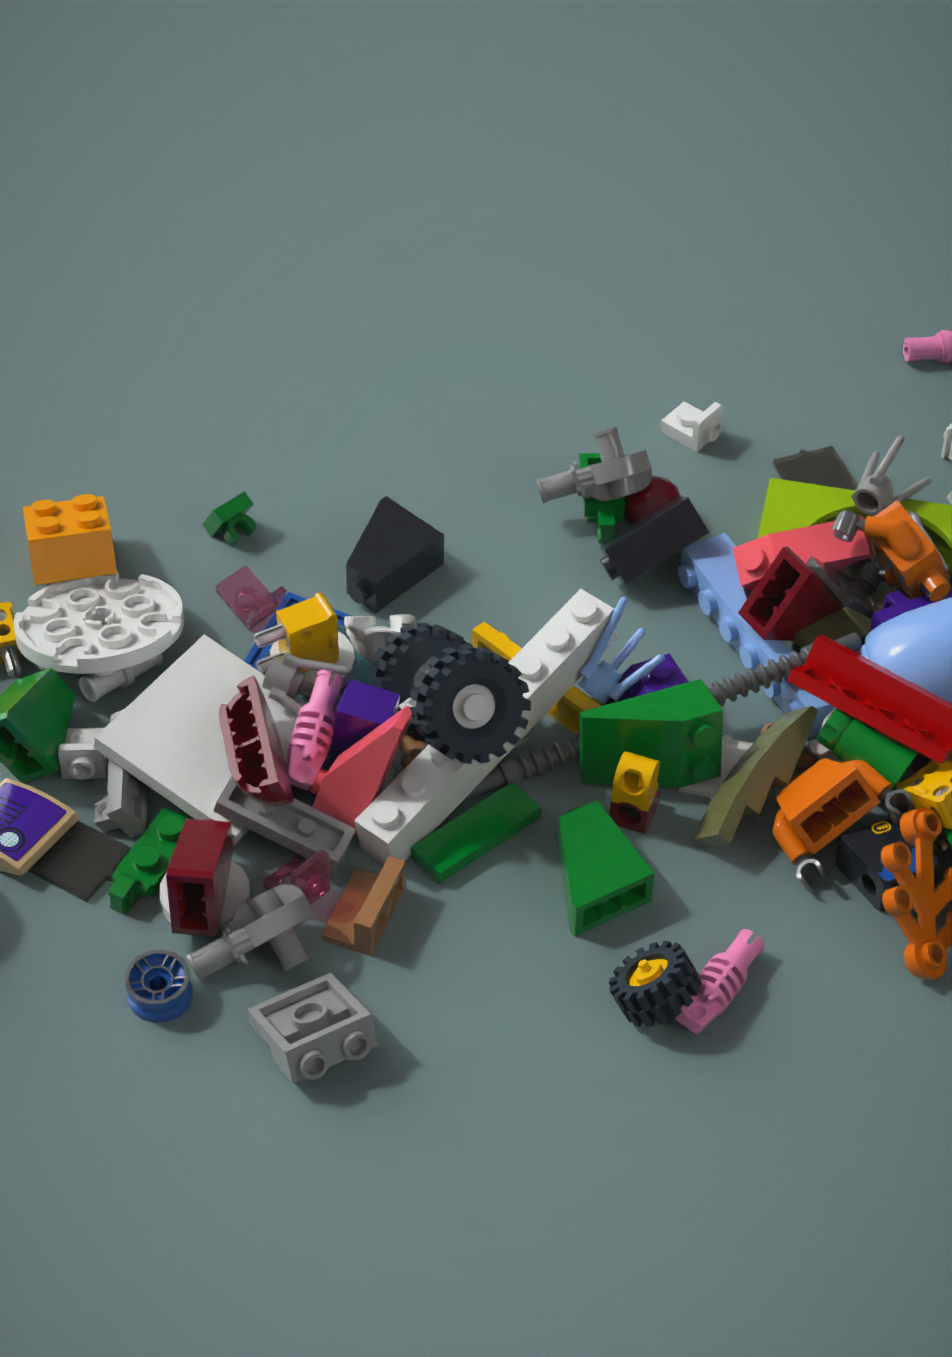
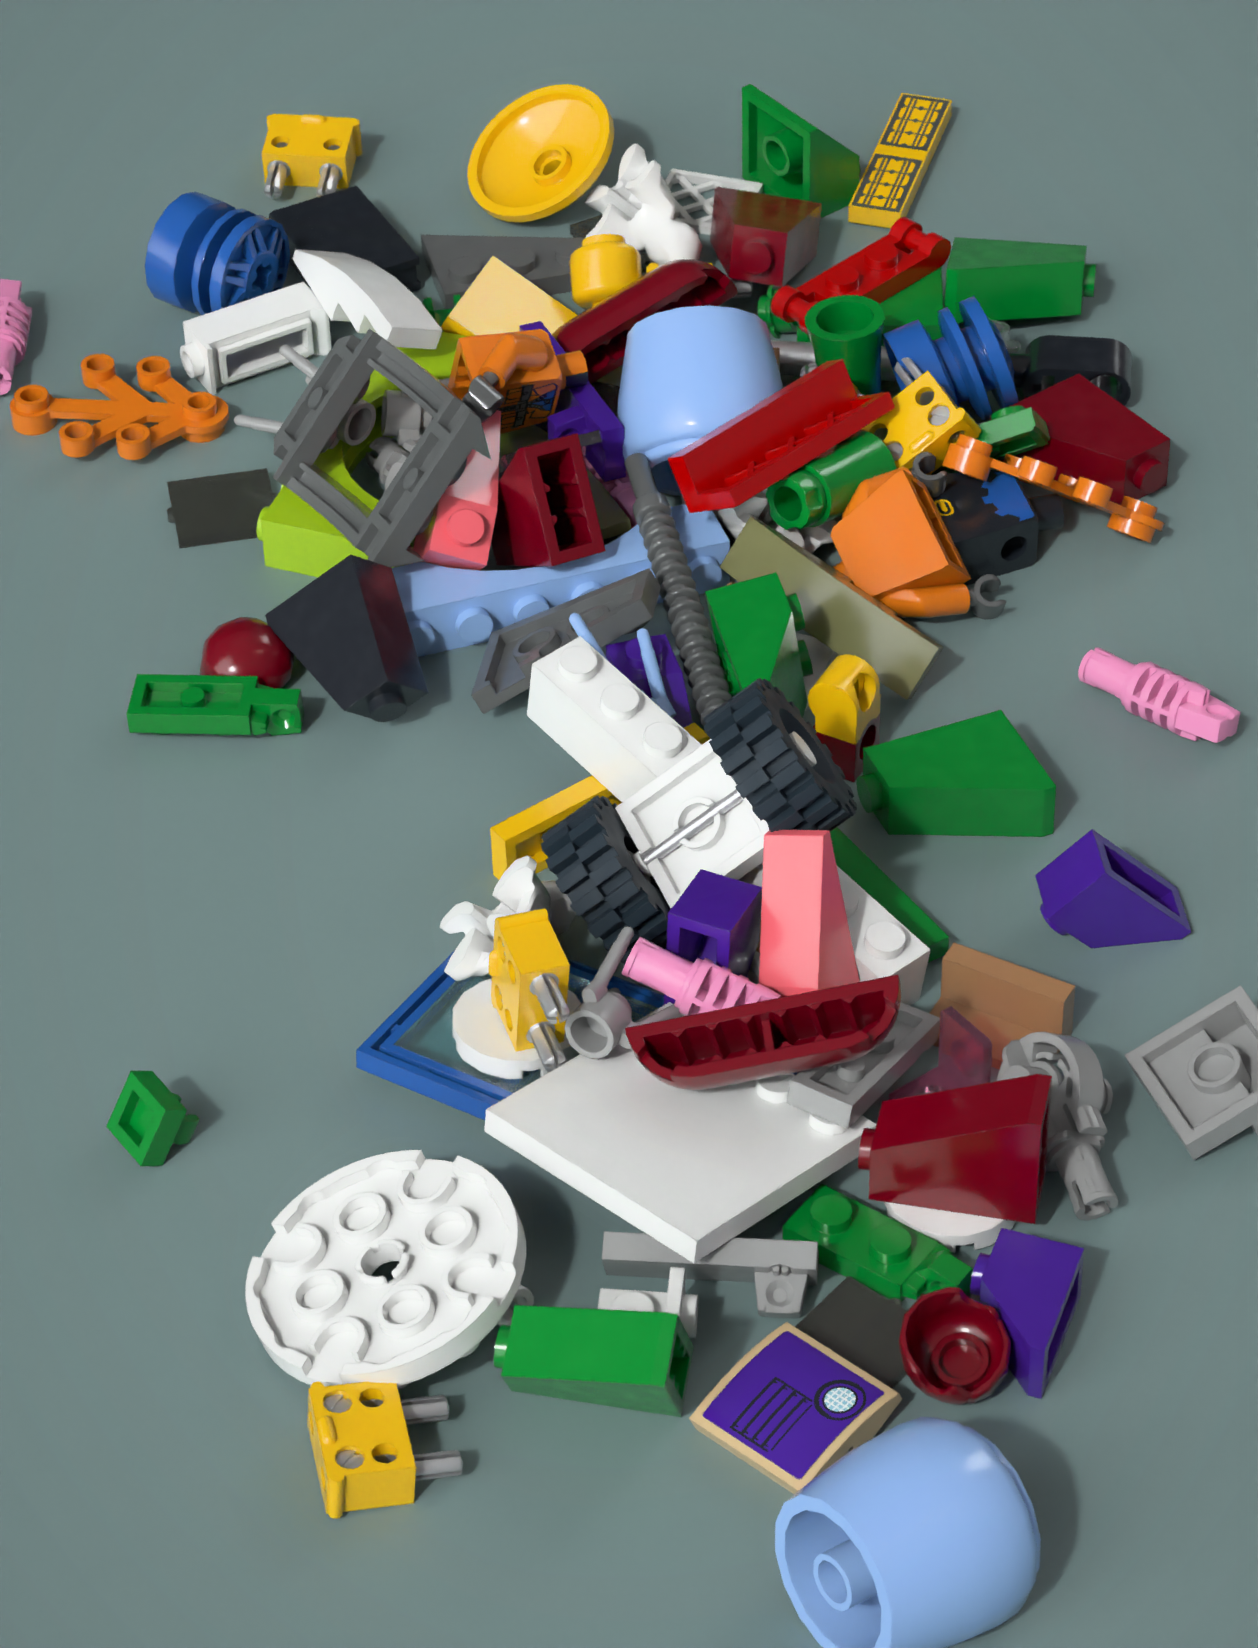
camera: 80 degrees left, 5 degrees down
(52, 890) = (954, 1347): none -> dark red hair
(69, 539) = (178, 1303): light orange brick -> none
(93, 931) = (1035, 1293): none -> dark purple slope
(154, 971) = (1132, 1243): blue wheel -> none
(249, 597) = (357, 1105): clear pink bracket -> none
(392, 556) = (290, 937): black slope -> none
(486, 961) = (1109, 897): none -> dark purple slope
(604, 481) = (232, 643): light grey pin -> none
(655, 984) = (1180, 736): black wheel -> none
(684, 635) = (607, 612): none -> dark grey wing
(692, 426) = (87, 604): white bracket -> none
(810, 502) = (422, 479): none -> dark grey wedge
(887, 377) = (194, 415): none -> orange plant

